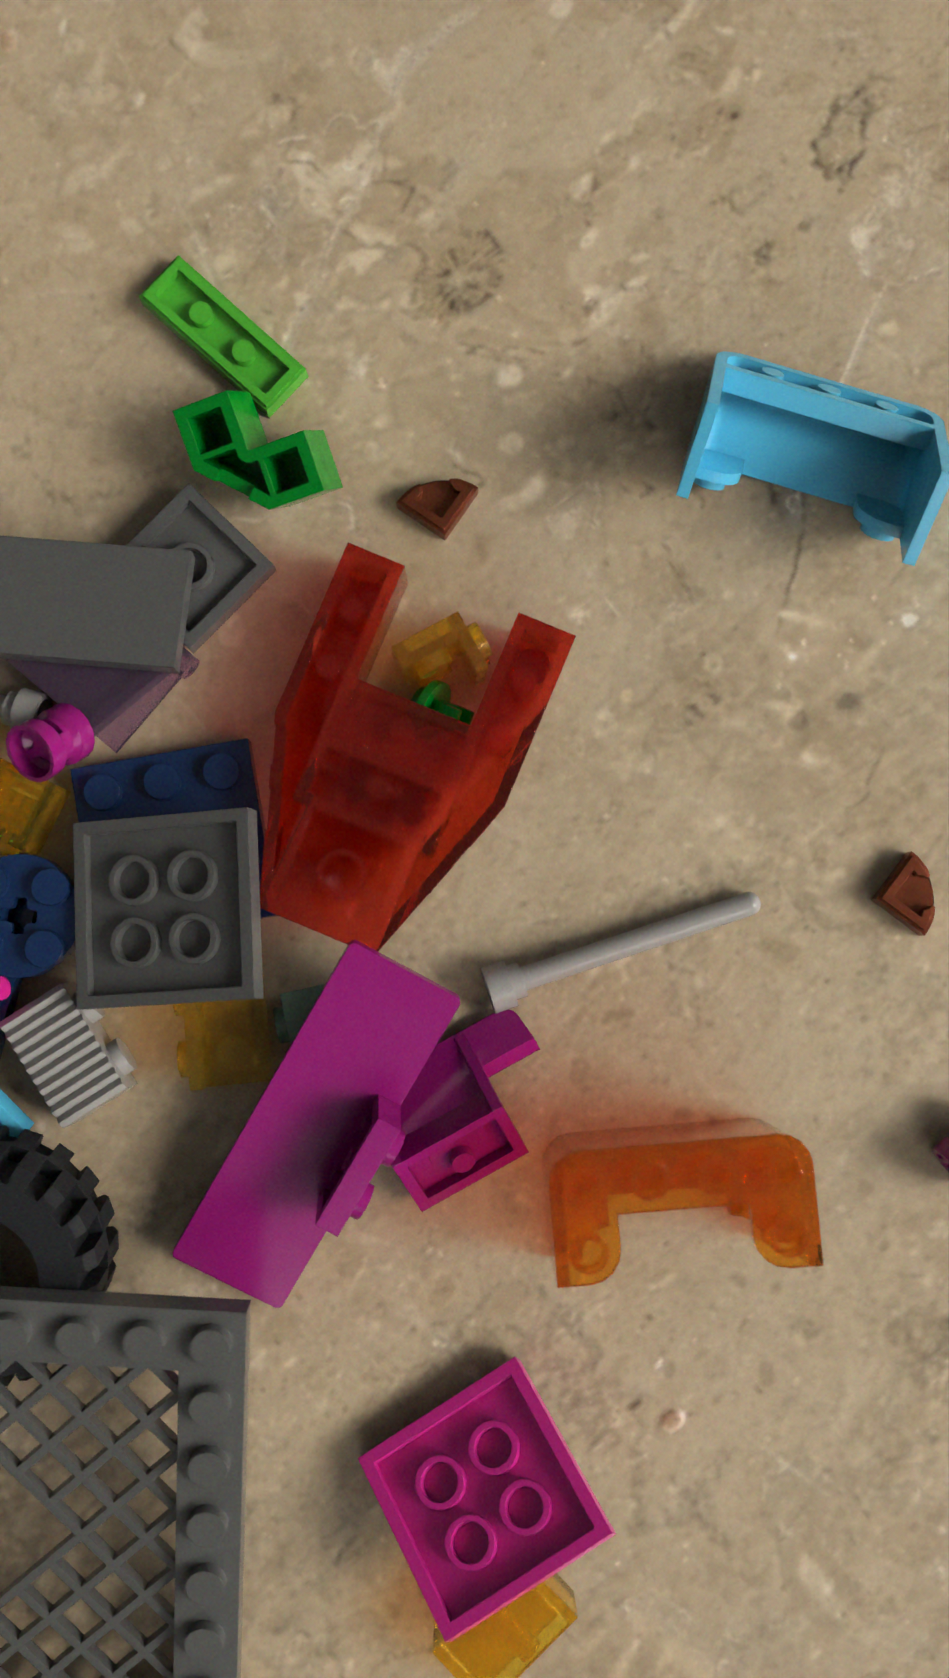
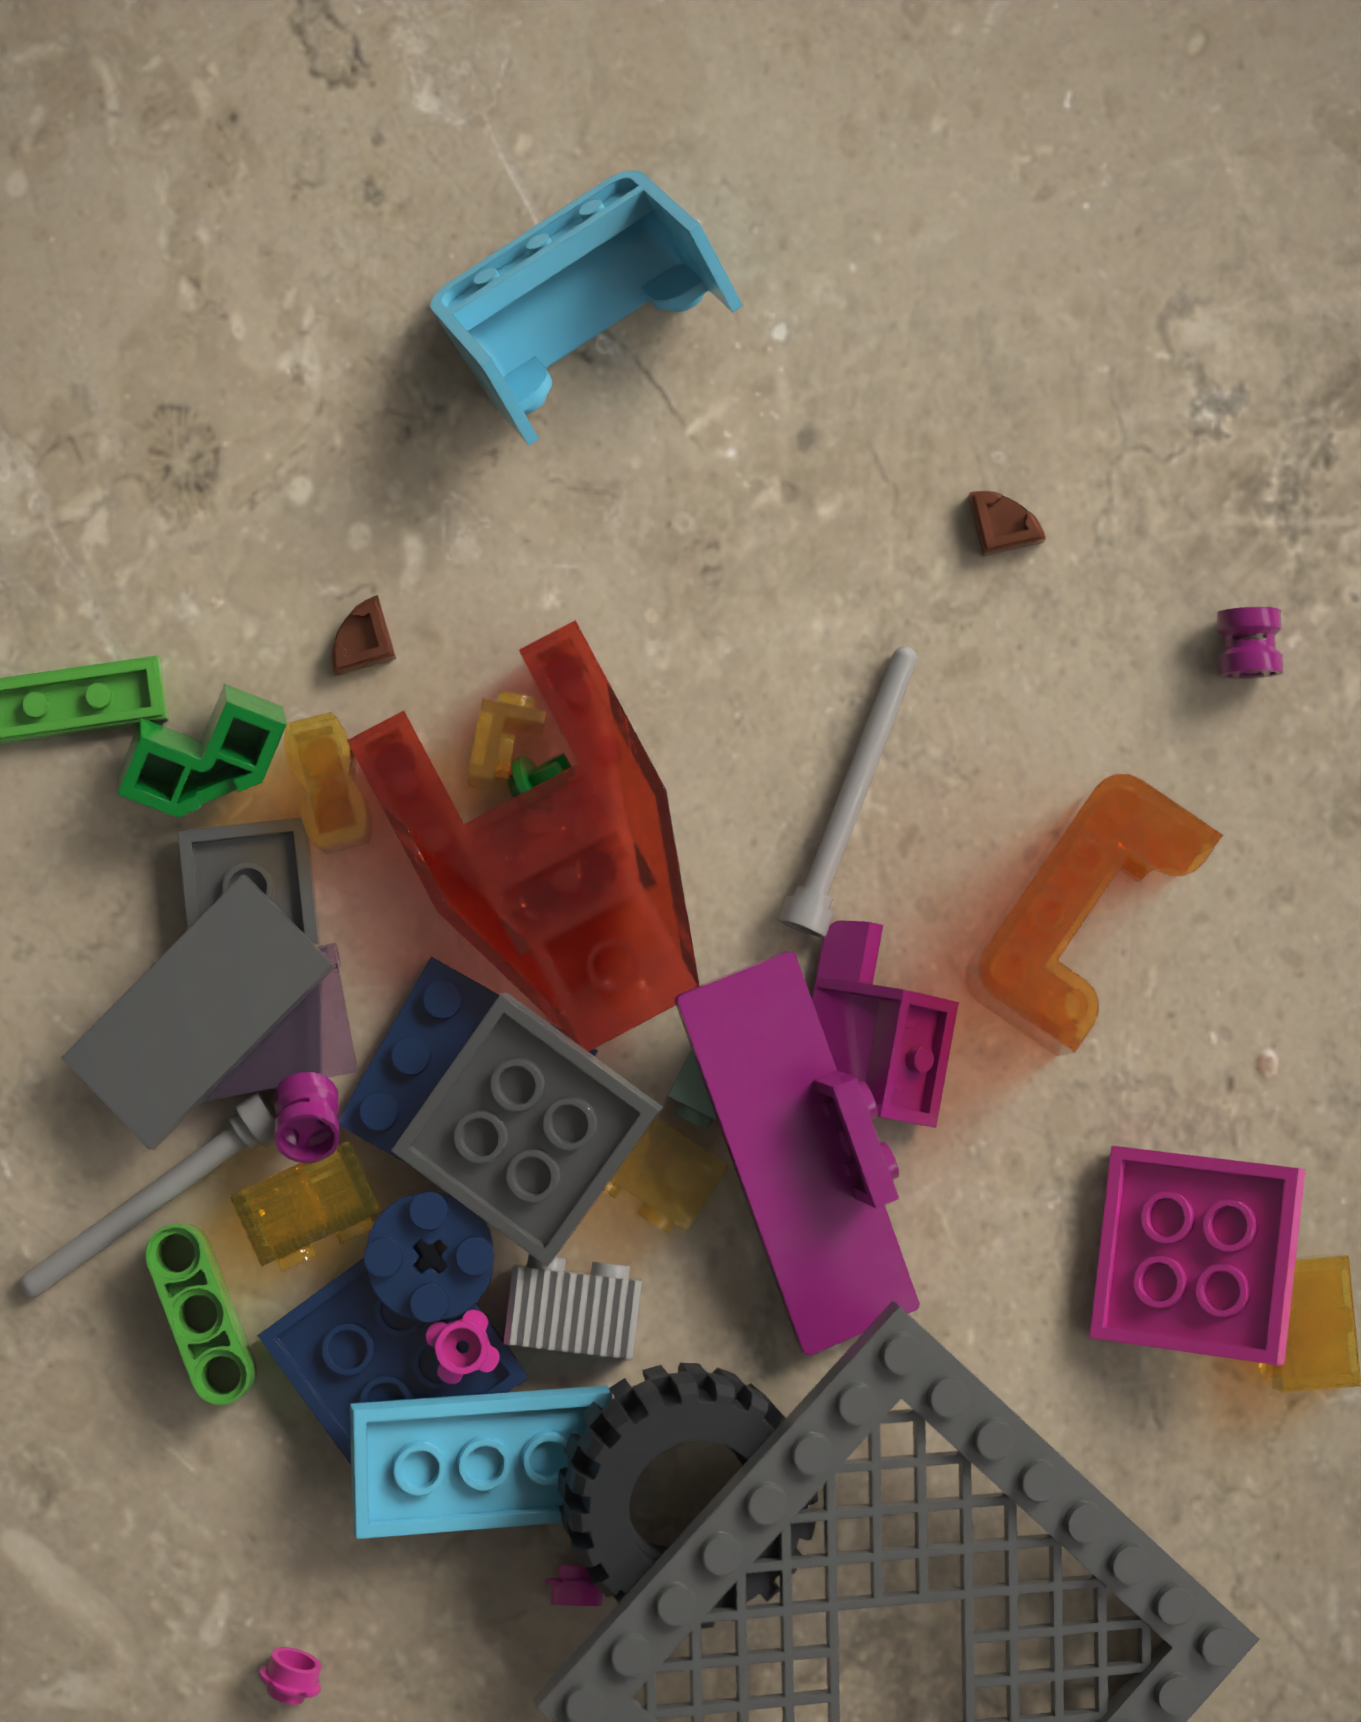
camera: 55 degrees left, 0 degrees up
(299, 569) = (330, 801): none -> clear yellow brick

